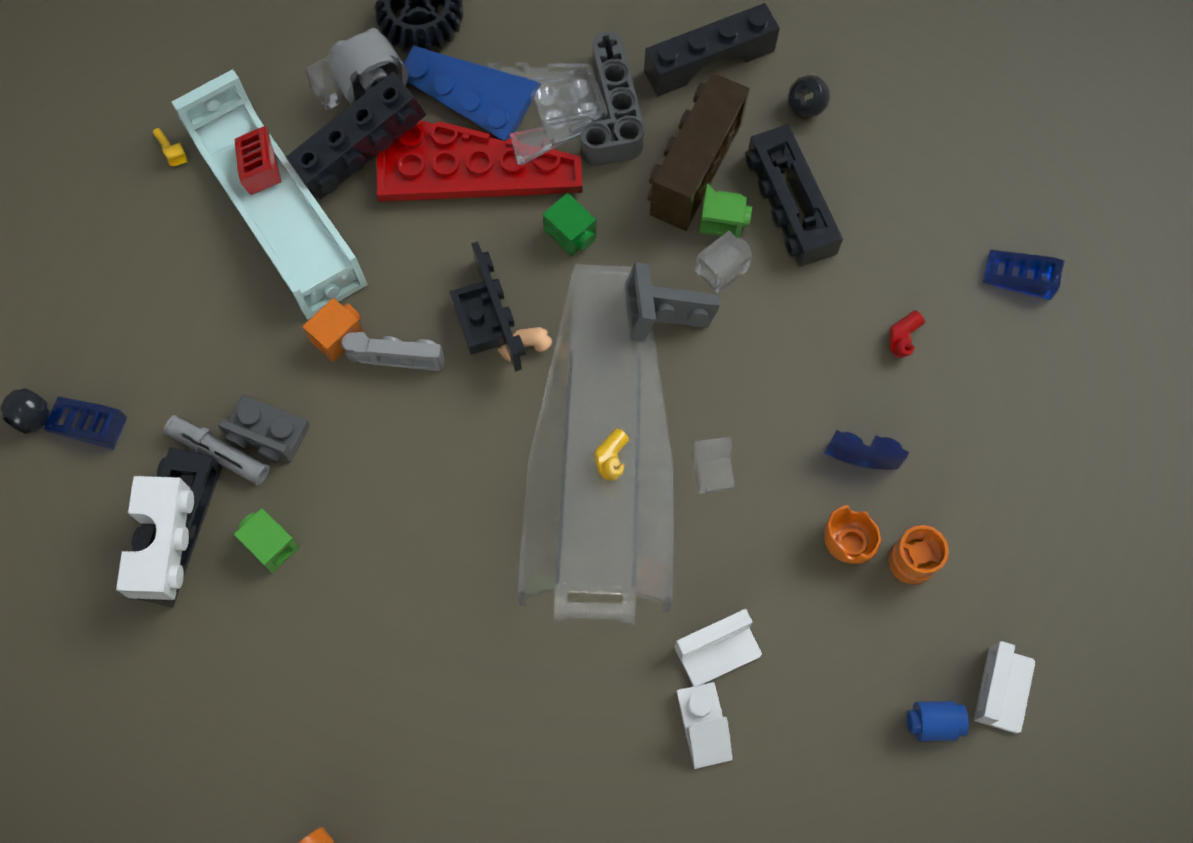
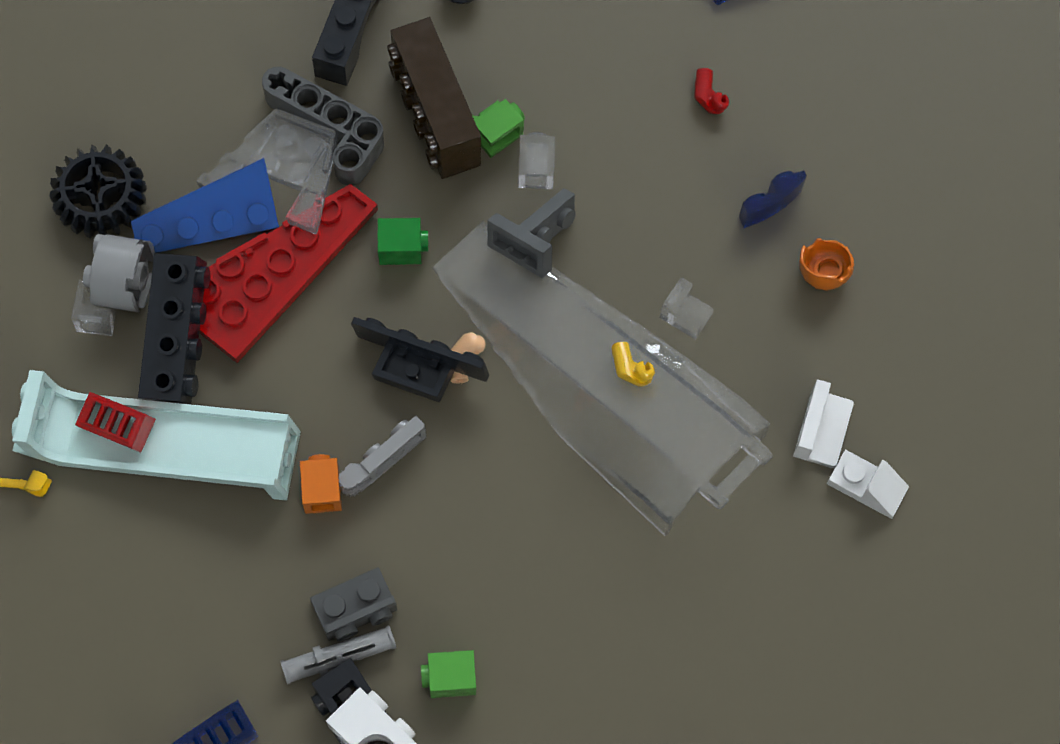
camera: 50 degrees left, 0 degrees up
(769, 156) = (530, 66): black brick -> none
(918, 554) = (880, 233): orange wheel -> none
(937, 721) = (1002, 328): blue brick -> none
(1004, 688) = (1016, 266): white panel -> none

